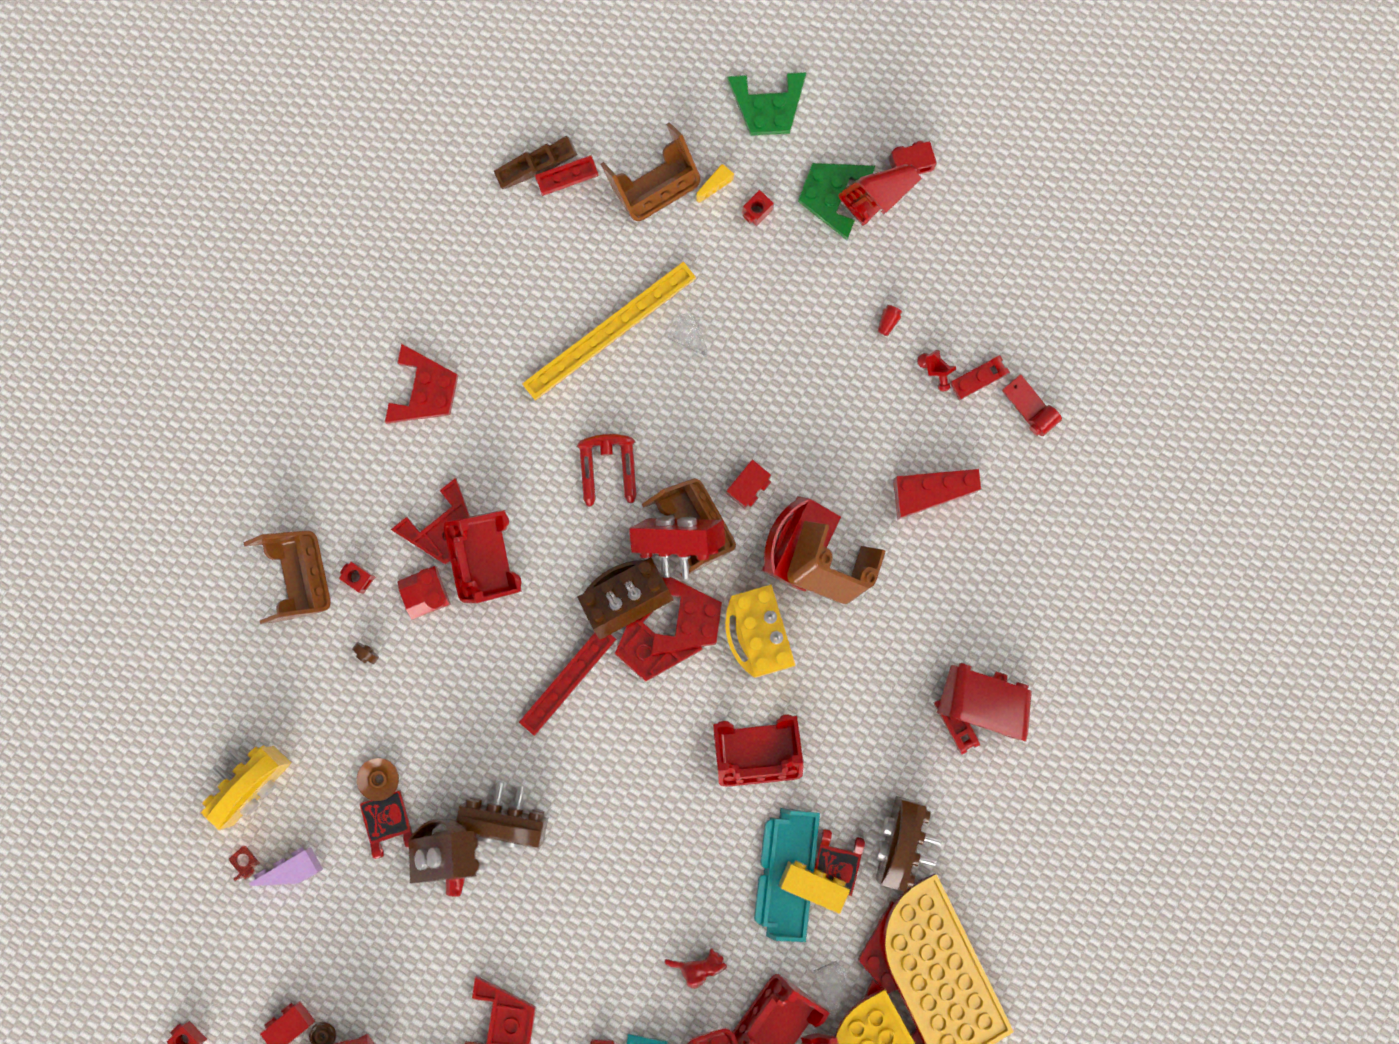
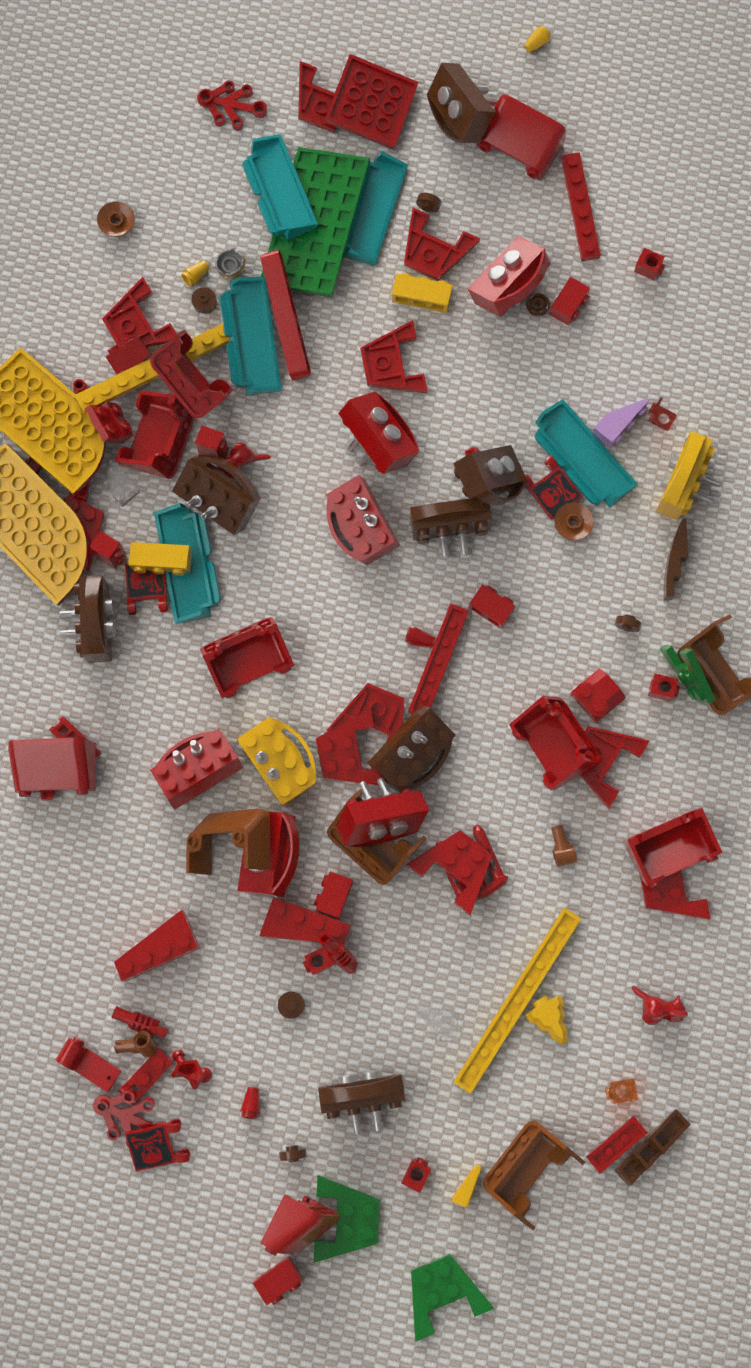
camera: 165 degrees right, 5 degrees down
(287, 709) = (677, 554): none -> reddish brown slope
(324, 578) = (689, 674): none -> green wing
(342, 848) = (582, 456): none -> teal slope
(409, 420) = (673, 846): none -> red windscreen
(482, 277) = (657, 1009): none -> red animal
(493, 718) = (492, 606): none -> red brick
(514, 451) = (563, 851): none -> dark orange pin
(536, 215) = (630, 1095): none -> clear orange brick
(541, 946) = (380, 432): none -> red piece
(578, 711) = (418, 637): none -> red cone
(585, 305) = (549, 1017): none -> yellow rock
(595, 855) = (360, 521): none -> red piece
(614, 474) = (462, 860): none -> red wing
(721, 995) = (211, 442): none -> red brick
(734, 938) = (217, 493): none -> reddish brown piece
(763, 425) = (339, 953): none -> red hinge
(776, 434) = (328, 962): none -> red brick
(777, 291) = (353, 1093): none -> reddish brown piece
(790, 467) = (300, 924): none -> red wedge
(823, 397) = (291, 1005): none -> reddish brown wheel
(845, 654) = (195, 766): none -> red piece
(864, 262) = (292, 1154): none -> reddish brown wheel
(865, 914) = (108, 550): none -> red brick
(970, 427) = (139, 1022): none -> red hinge
(981, 407) = (140, 1043): none -> dark orange pin
(989, 311) = (153, 1148): none -> flag
(1007, 345) = (125, 1115): none -> red plant

